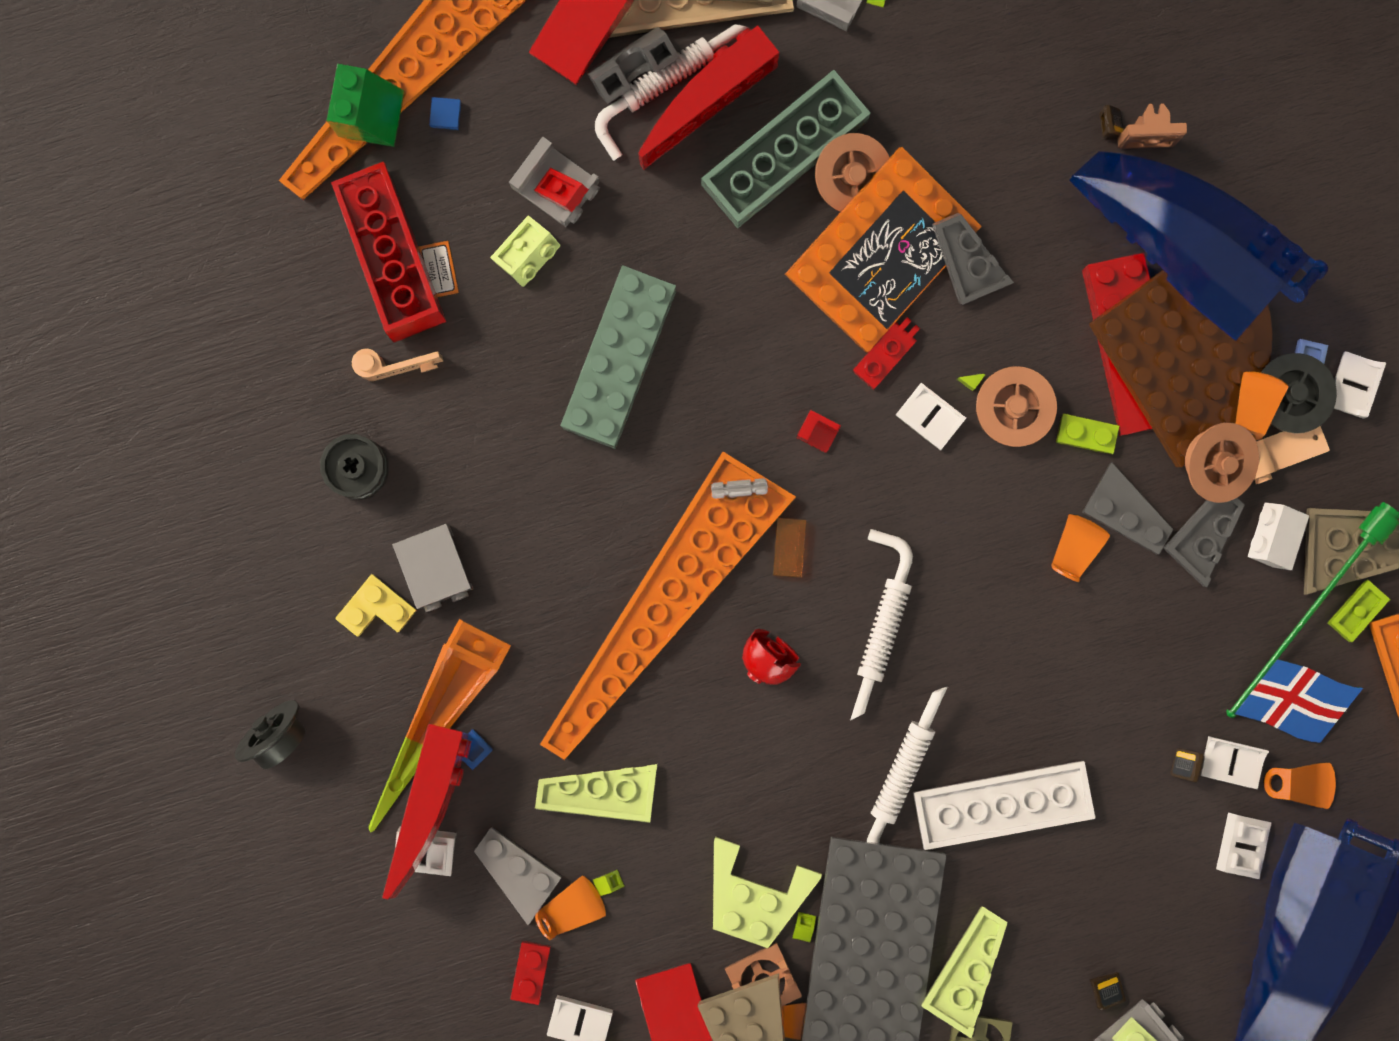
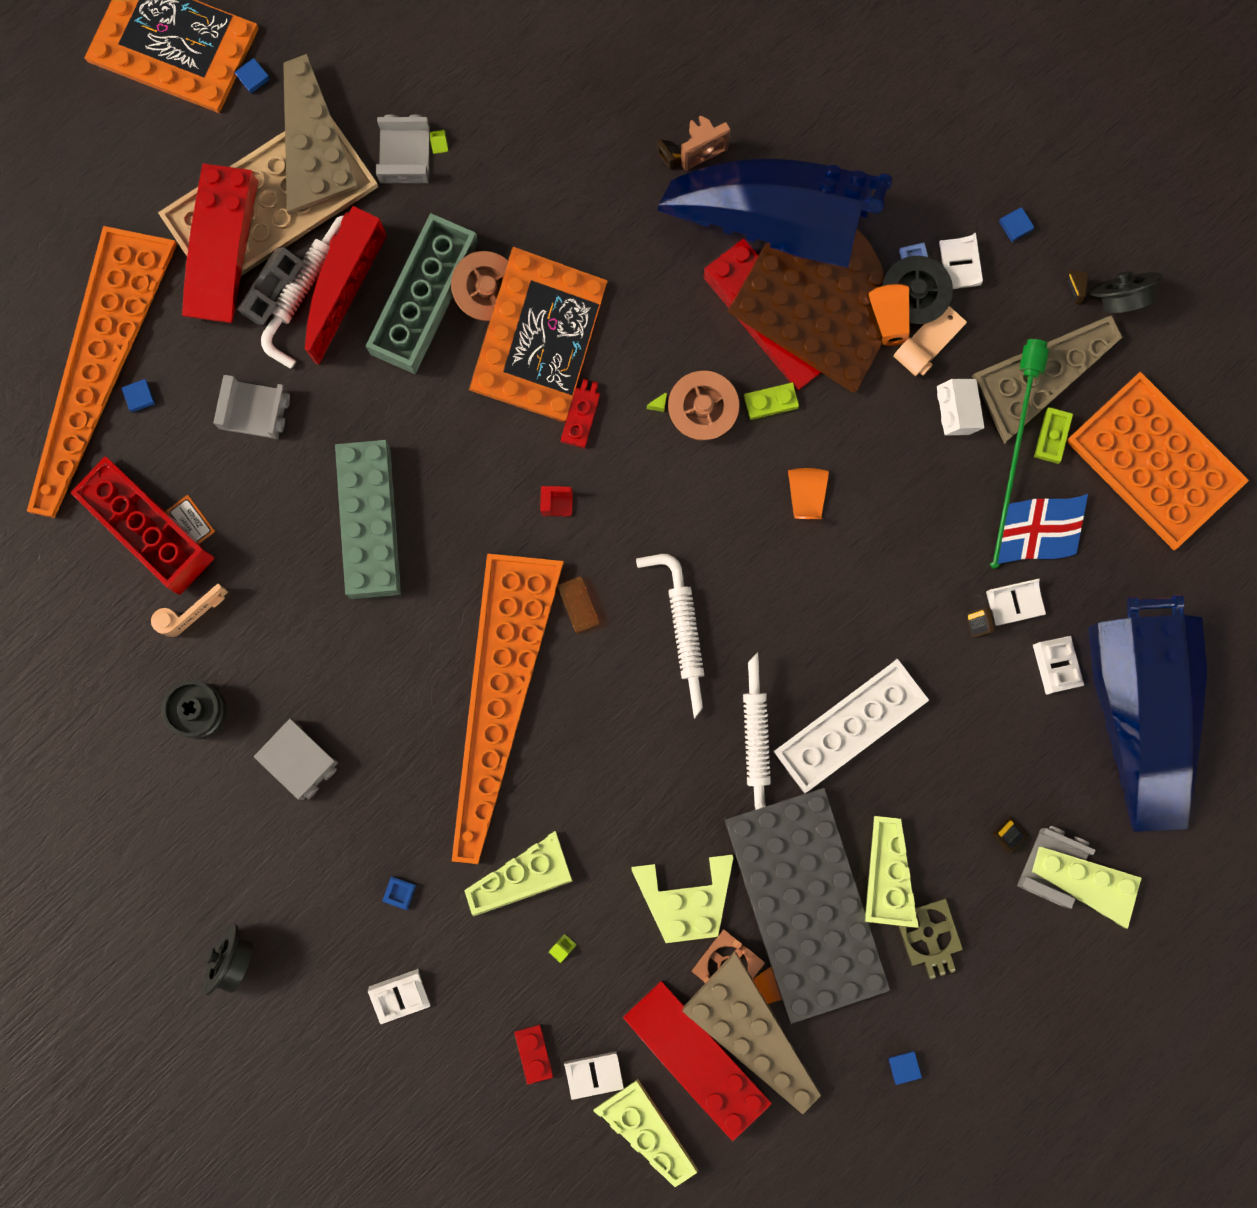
camera: 25 degrees left, 5 degrees down
(364, 106) = (67, 417): green slope -> none
(372, 600) = (261, 810): light yellow plate -> none
(428, 801) = (380, 953): red slope -> none
(458, 676) = (359, 834): orange plate -> none
(517, 873) = (483, 976): light grey wing -> none
(526, 251) = (253, 472): yellowish green bracket -> none
(561, 189) = (258, 409): red plate -> none
(571, 909) = (542, 984): orange piece -> none
(739, 488) = (514, 575): light grey axle -> none
(769, 660) = (604, 701): red cylinder -> none
(804, 927) = (739, 905): lime piece -> none
(941, 426) = (627, 445): white piece -> none
(968, 261) = (613, 314): dark grey wing -> none
(1127, 512) = (833, 447): dark grey wing -> none
(1202, 537) = (902, 436): dark grey wing -> none
(1222, 462) = (886, 369): nougat wheel -> none
(1305, 784) = (1080, 592): orange piece -> none

